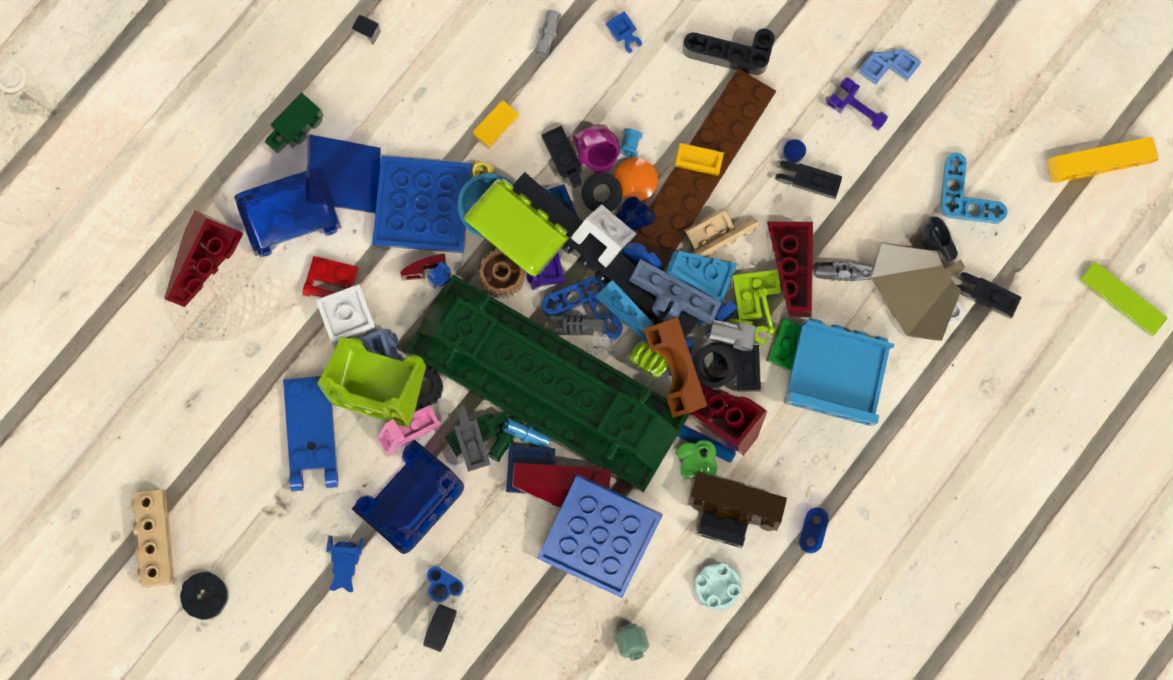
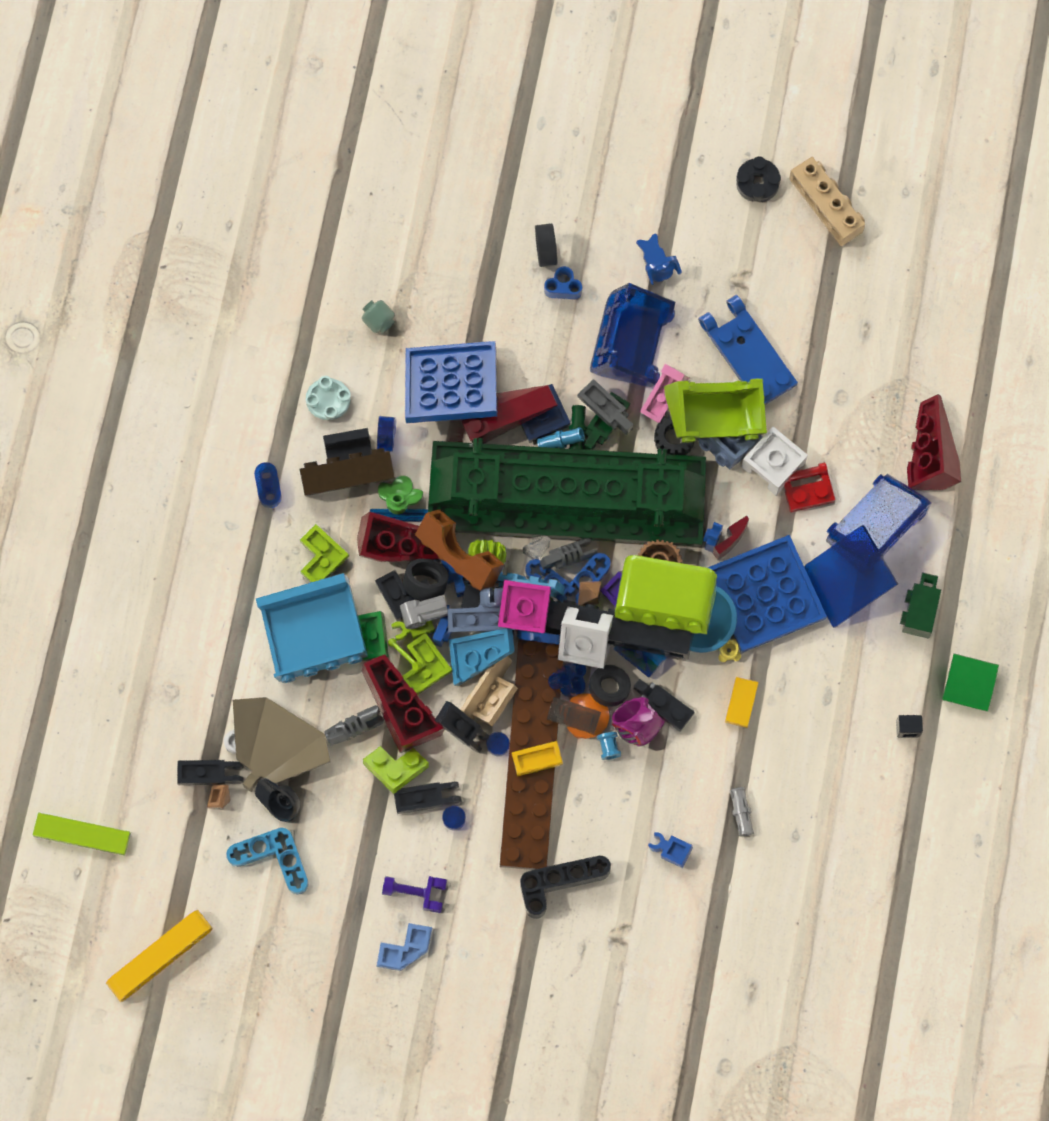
camera: 155 degrees right, 5 degrees down
(291, 41) = (970, 682): none -> green slope
(576, 280) = (589, 593): none -> medium nougat slope
(646, 279) = (524, 606): none -> dark pink plate
(648, 178) = (573, 715): none -> clear smoke slope
(681, 523) = (386, 433): none -> clear blue piece
(724, 194) = (498, 744): none -> clear blue tile
(752, 215) = (460, 726): none -> black hinge
(791, 437) = (327, 554): none -> lime plate
(829, 211) = (395, 773): none -> lime plate
(990, 268) = (219, 796): none -> medium nougat slope

